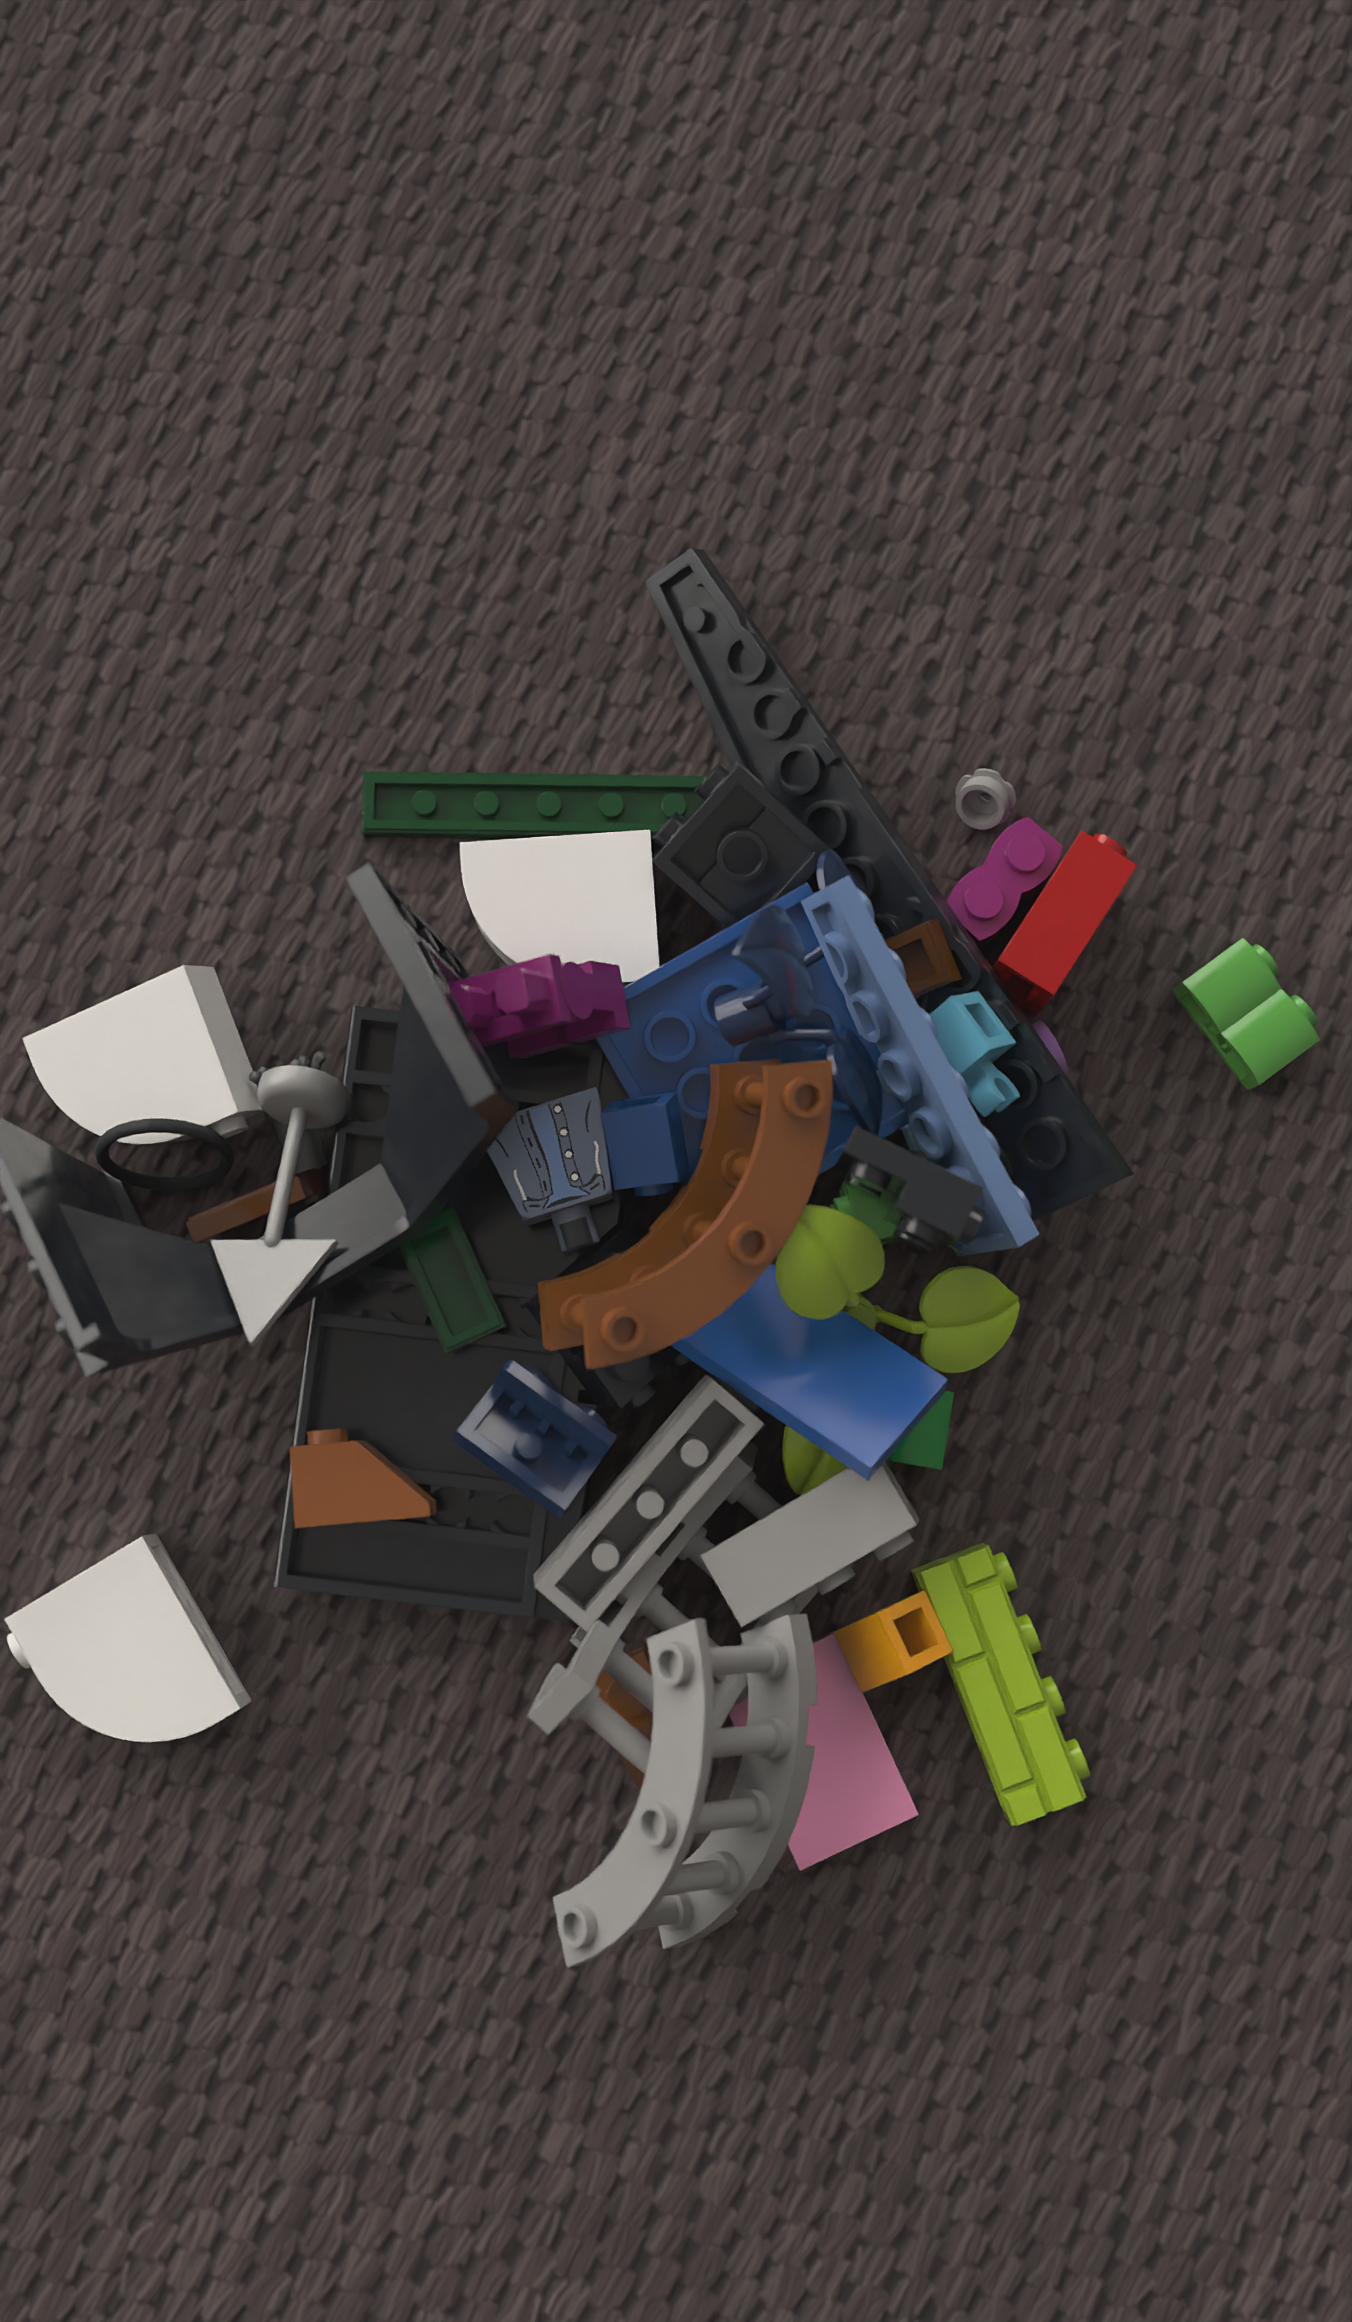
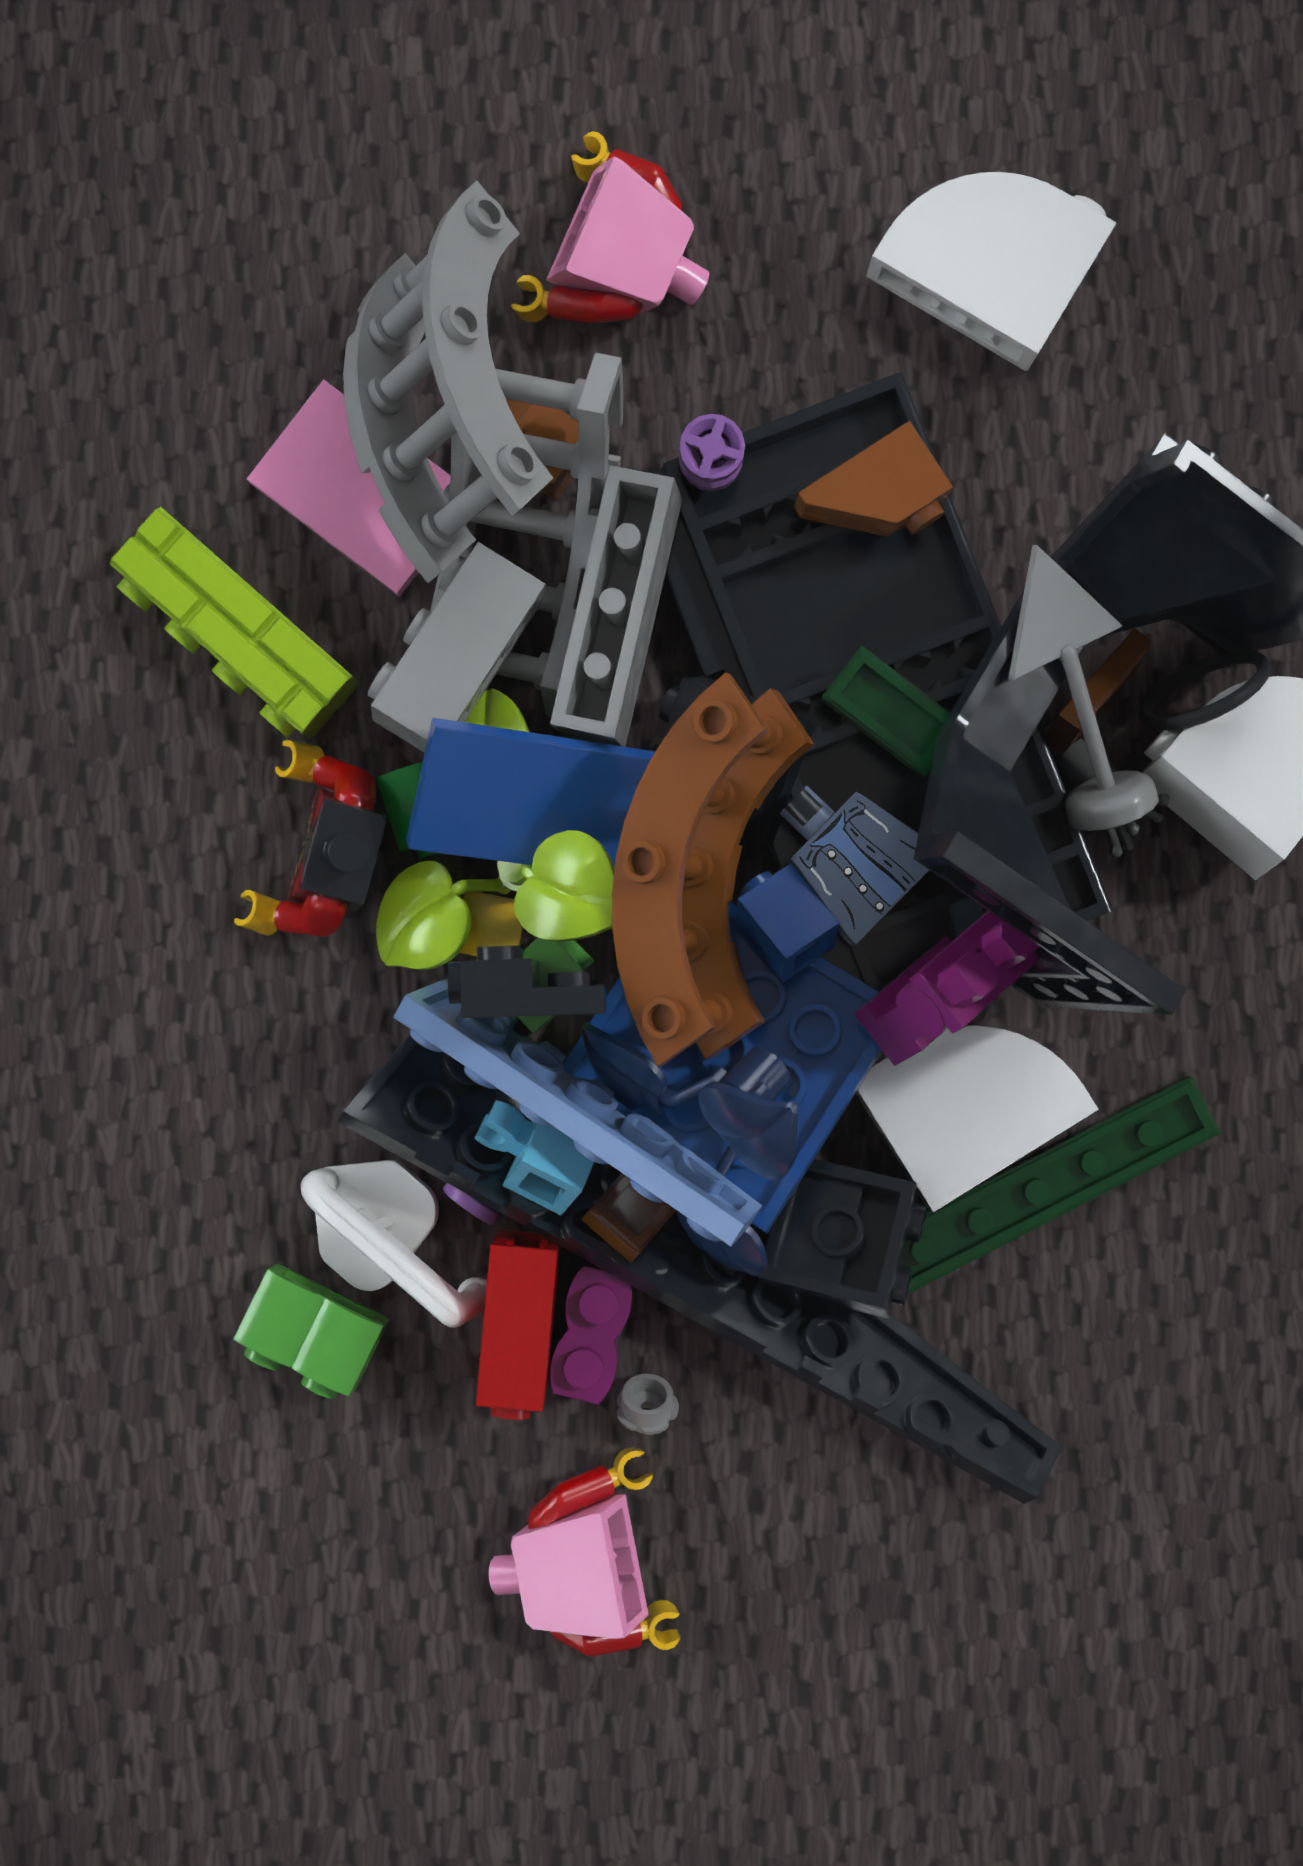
camera: 150 degrees right, 5 degrees up
(462, 1847) = (619, 245): none -> bright pink torso
(477, 1608) = (715, 439): none -> medium lavender wheel
(535, 1437) = (743, 612): dark blue bracket -> none
(893, 1641) = (341, 608): light orange brick -> none
(902, 1282) = (491, 922): none -> yellow tile
(1009, 1425) = (335, 850): none -> torso
(1112, 691) = (582, 1567): none -> bright pink torso
(1149, 1075) = (371, 1226): none -> white piece

